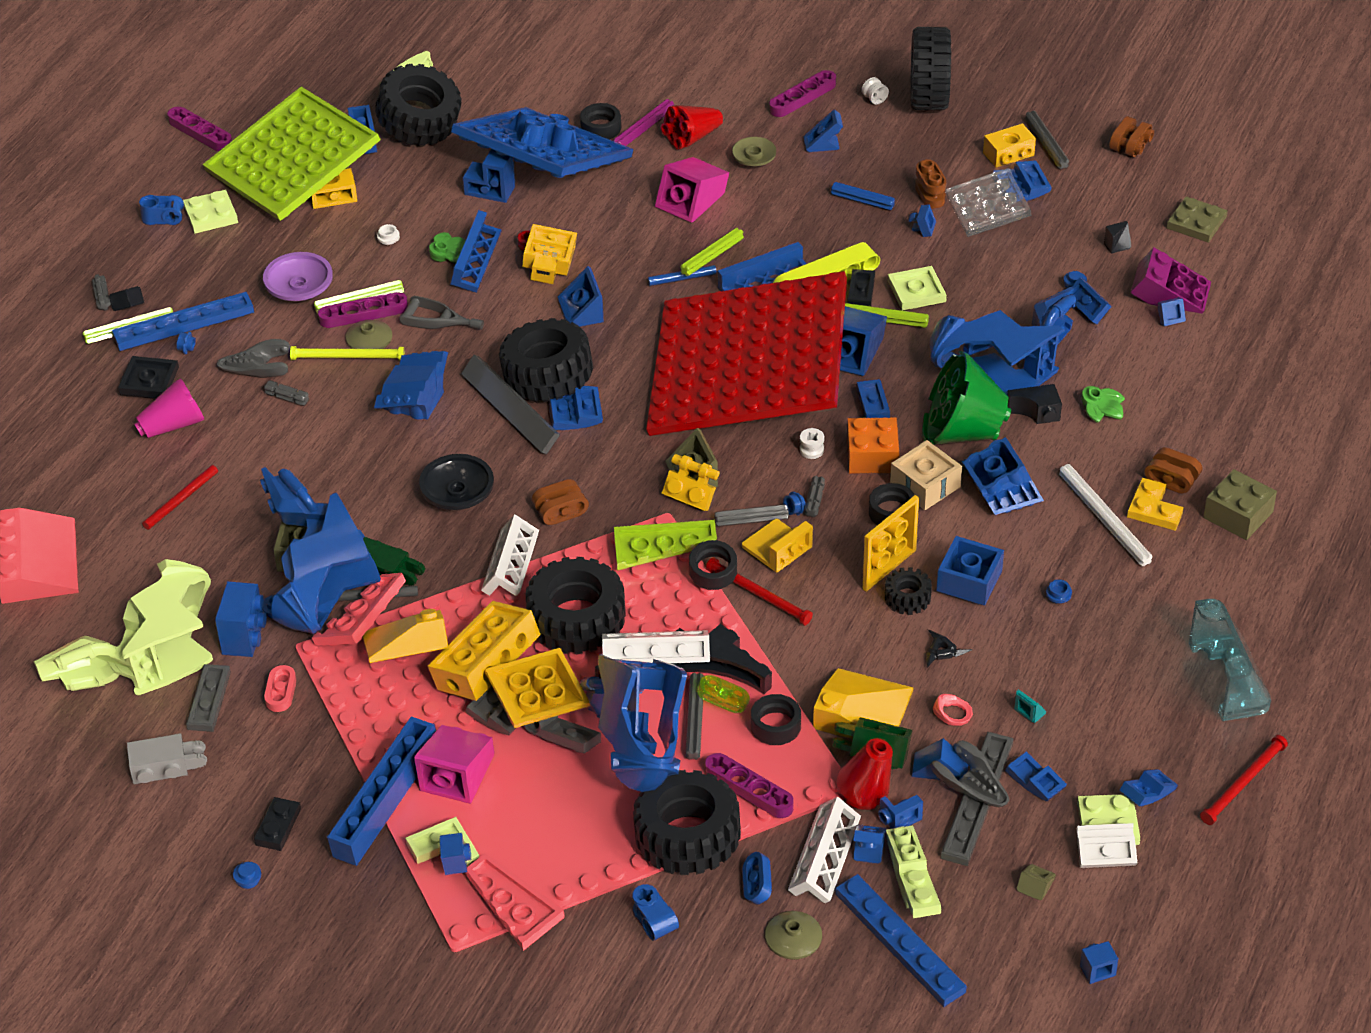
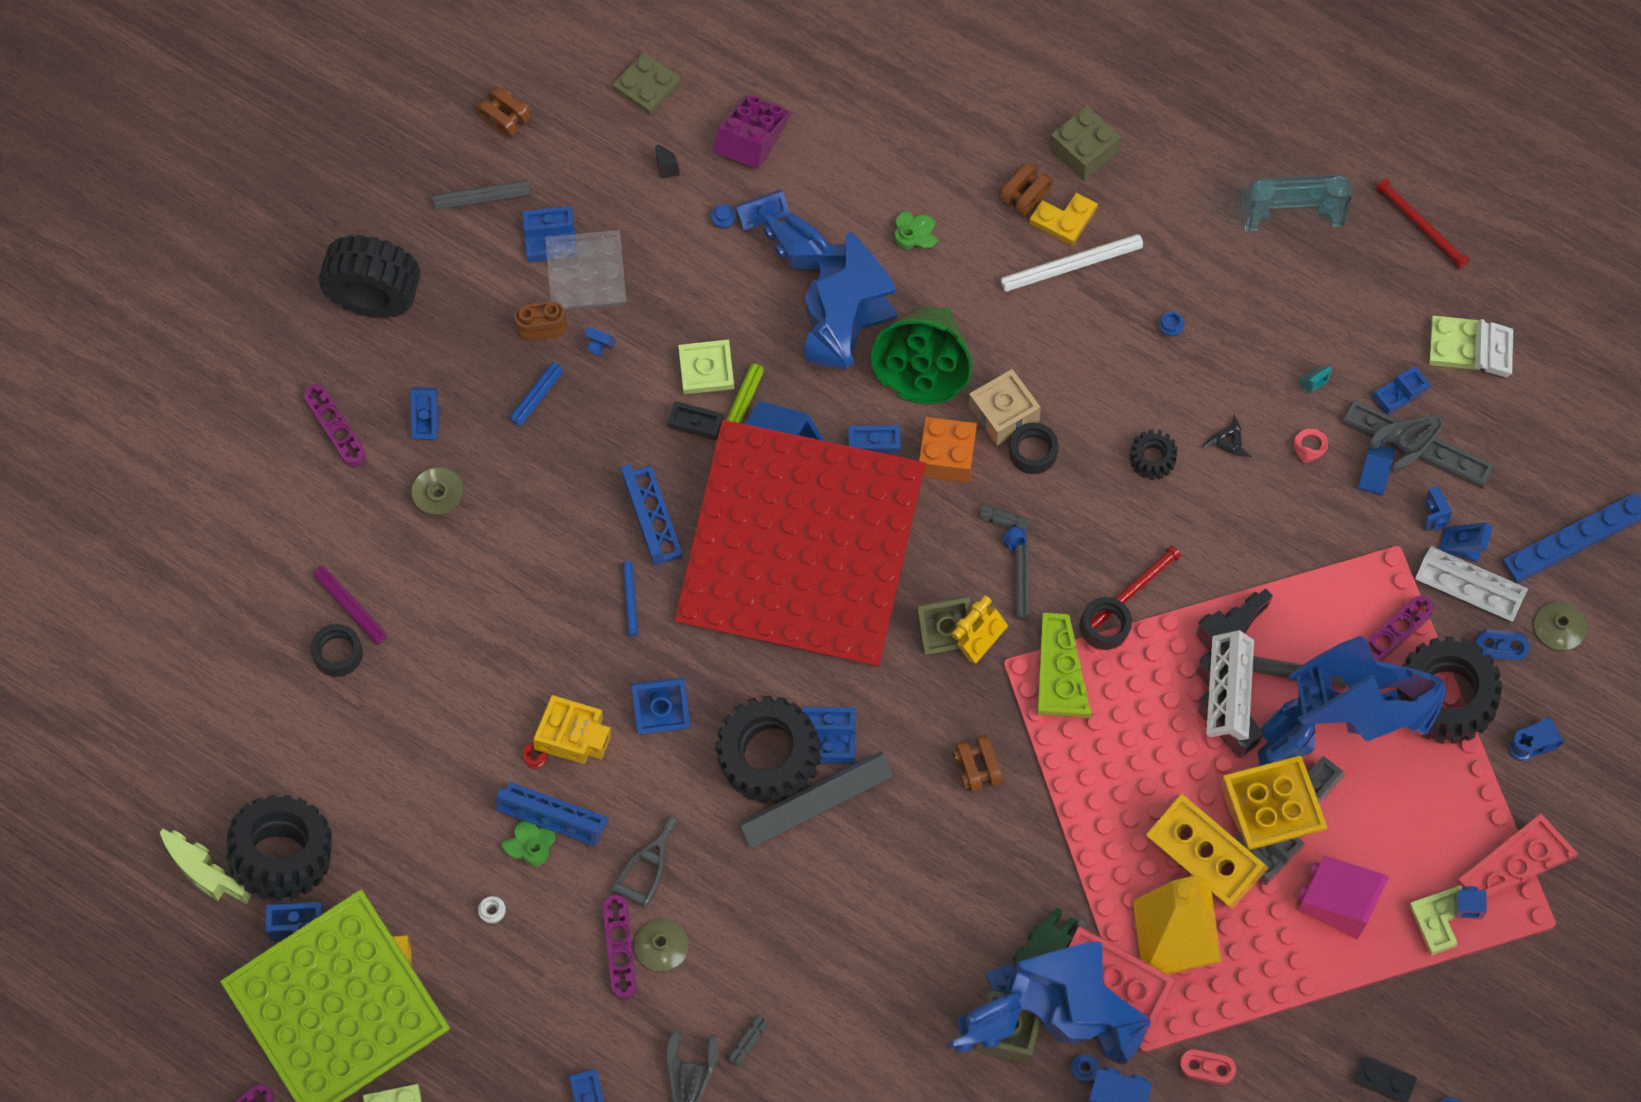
camera: 80 degrees left, 20 degrees up
(297, 276) = (559, 995): medium lavender dish -> none
(345, 353) = (693, 968): neon yellow bar -> none
(379, 794) = (1374, 966): blue brick -> none
(390, 287) = (596, 950): axle -> none
(414, 385) = (777, 895): blue slope -> none
(456, 481) = (945, 846): black dish -> none
(491, 179) = (426, 780): blue brick -> none
(505, 552) = (1058, 823): white fence -> none
(542, 141) = (392, 710): blue plate -> none
(571, 581) = (1155, 726): black tyre -> none
(689, 124) = (378, 551): red cone -> none
(690, 188) = (490, 565): dark pink slope -> none
(711, 252) = (605, 560): lime axle -> none
(723, 693) = (1278, 635): clear neon green plate -> none
(776, 704) = (1317, 579): black tyre -> none
(779, 544) = (1072, 561): yellow bracket -> none
(812, 443) = (928, 513): white wheel -> none
(854, 257) = (664, 450): neon yellow beam -> none
(854, 696) = (1294, 522): yellow slope -> none
(866, 775) = (1401, 527): red cone -> none
(867, 729) = (1356, 514): dark green hinge -> none
(875, 90) = (356, 348): white wheel -> none
(890, 543) = (1104, 455): yellow slope -> none
(912, 872) = (1512, 513): yellowish green slope -> none
(970, 570) = (1144, 392): blue brick -> none
(1002, 478) = (1012, 342): blue slope -> none
(1009, 145) = (488, 218): yellow brick -> none
(1035, 881) = (1519, 415): olive slope -> none
(1036, 402) = (911, 285): black arch -> none
(1099, 962) = (1620, 382): blue plate -> none
(1149, 788) = (1425, 301): blue slope -> none
(1171, 311) = (794, 138): tile -> none

